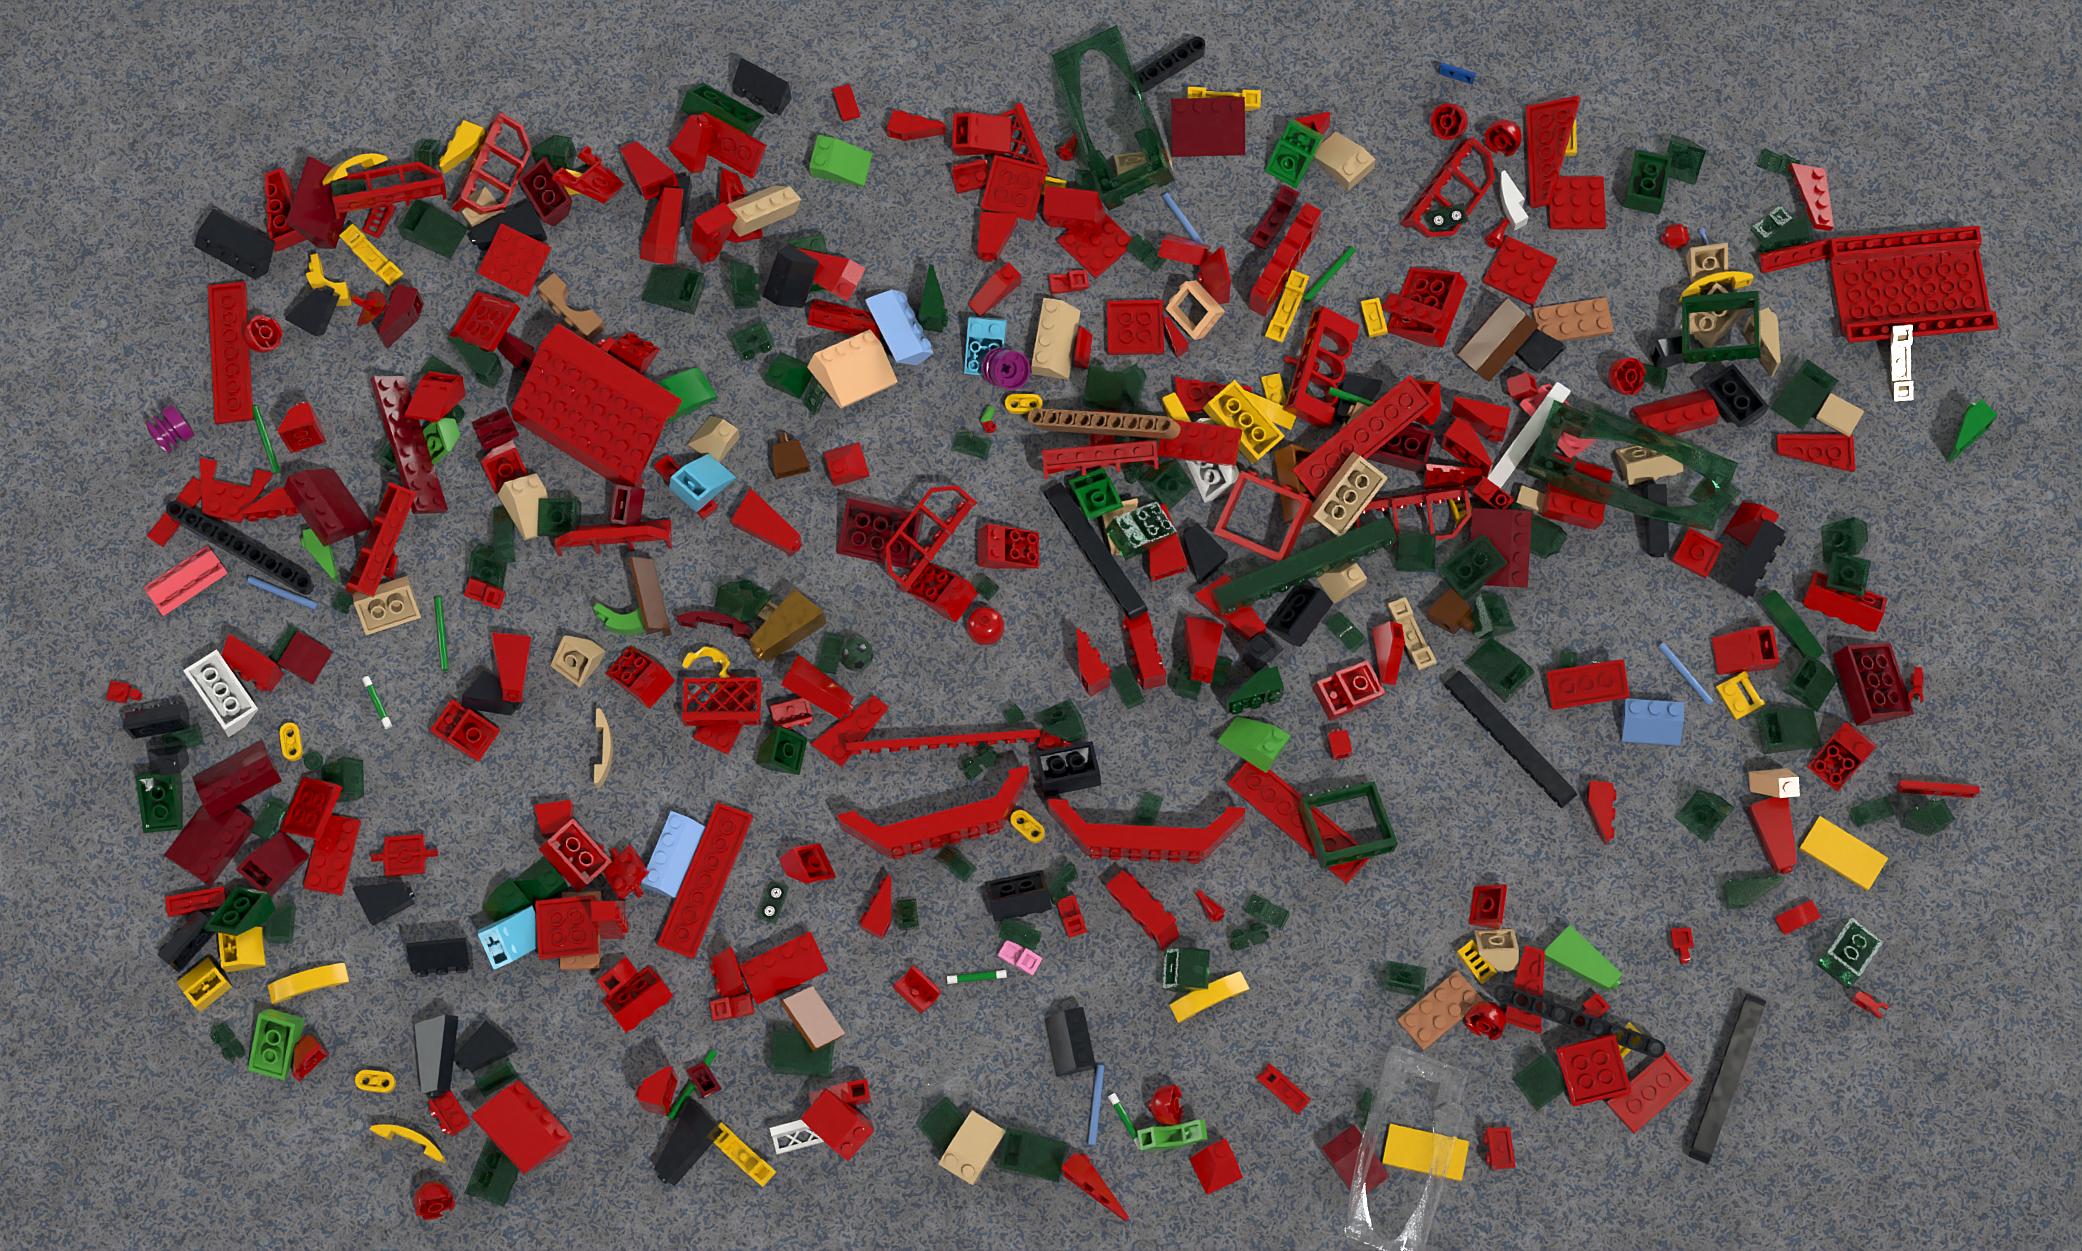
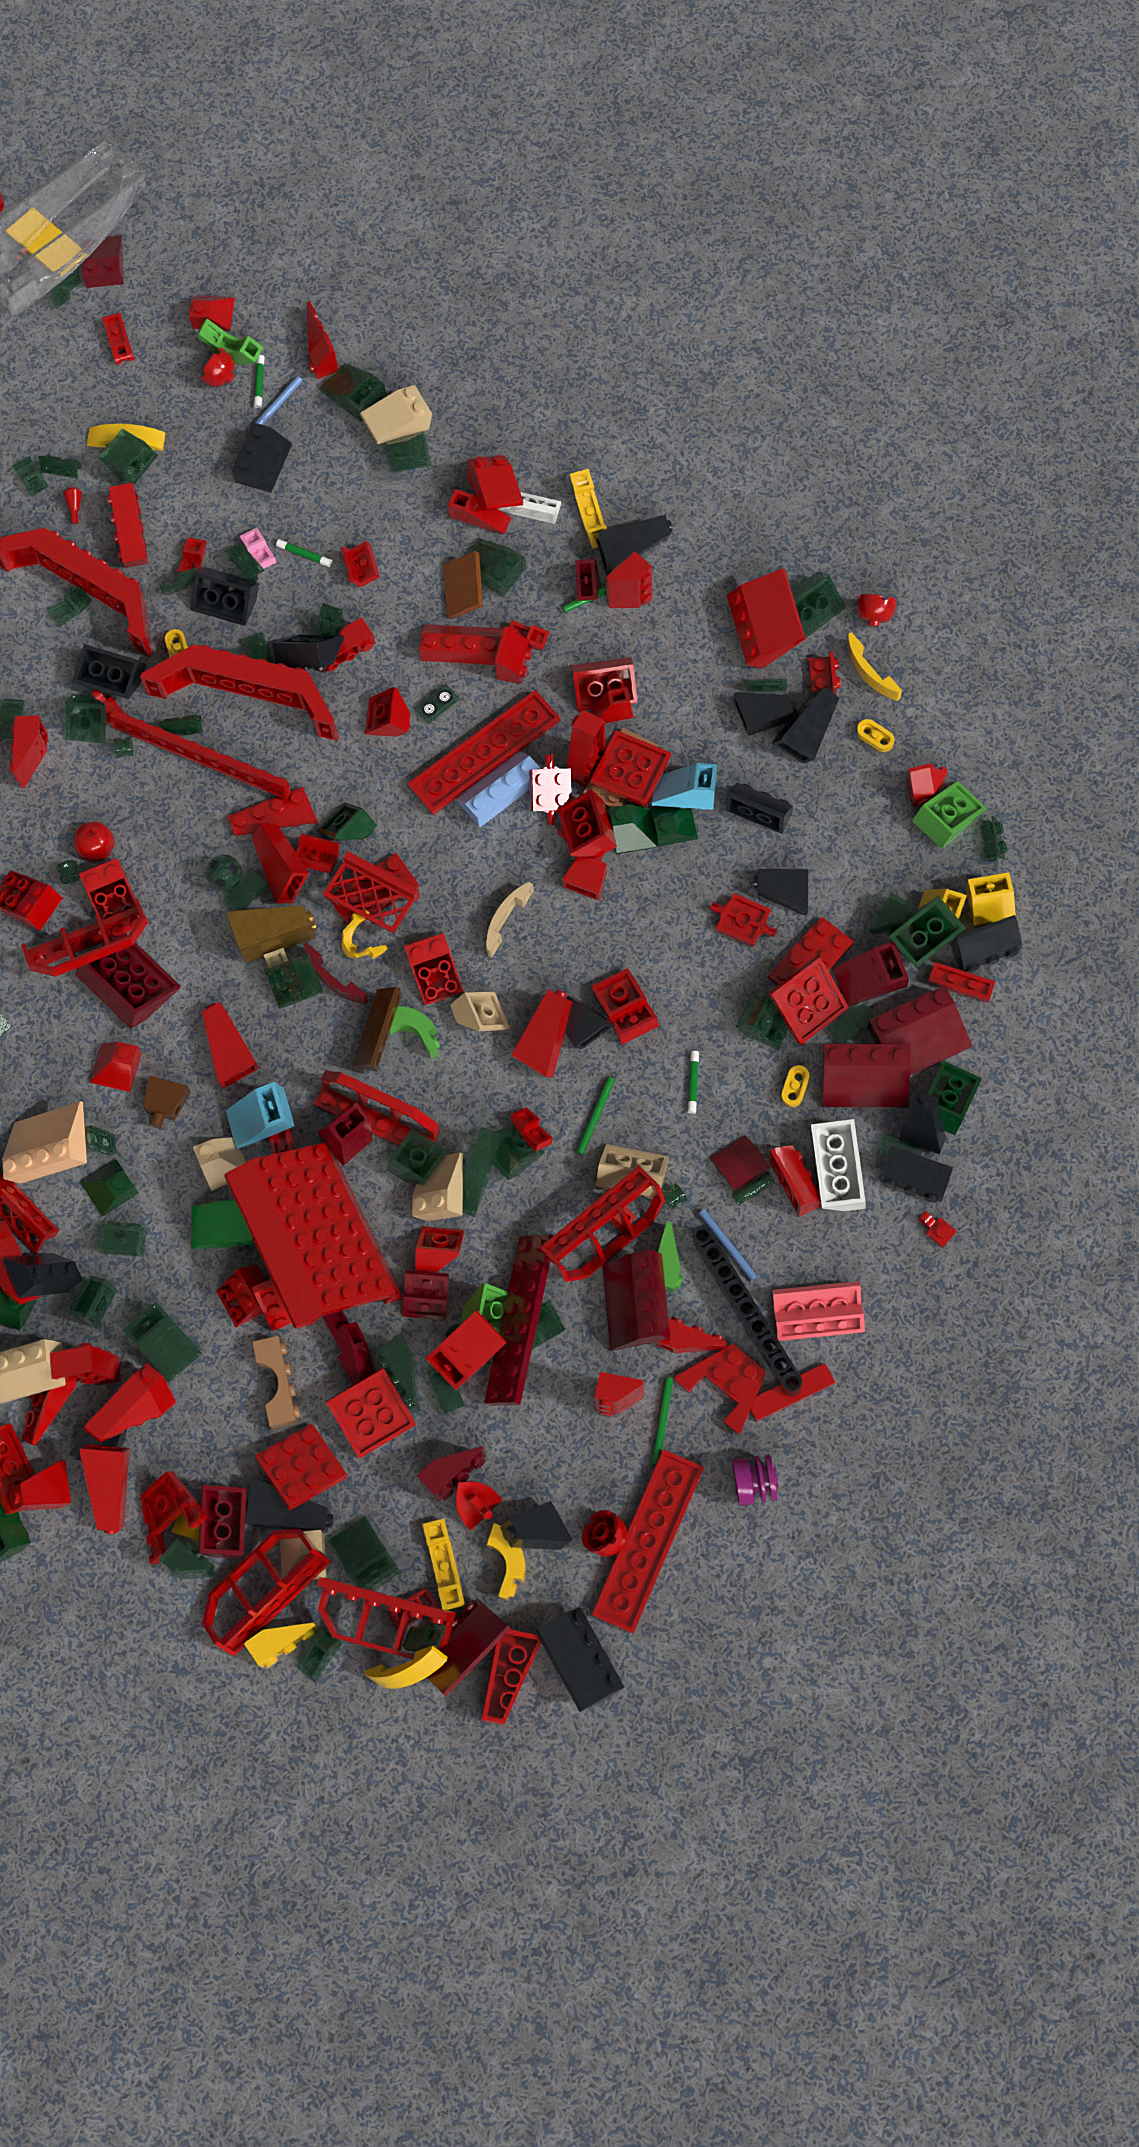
camera: 145 degrees left, 0 degrees up
(307, 981) = (893, 852): yellow slope -> none
(317, 764) = (783, 1063): clear green plate -> none
(906, 878) = (308, 651): none -> black slope

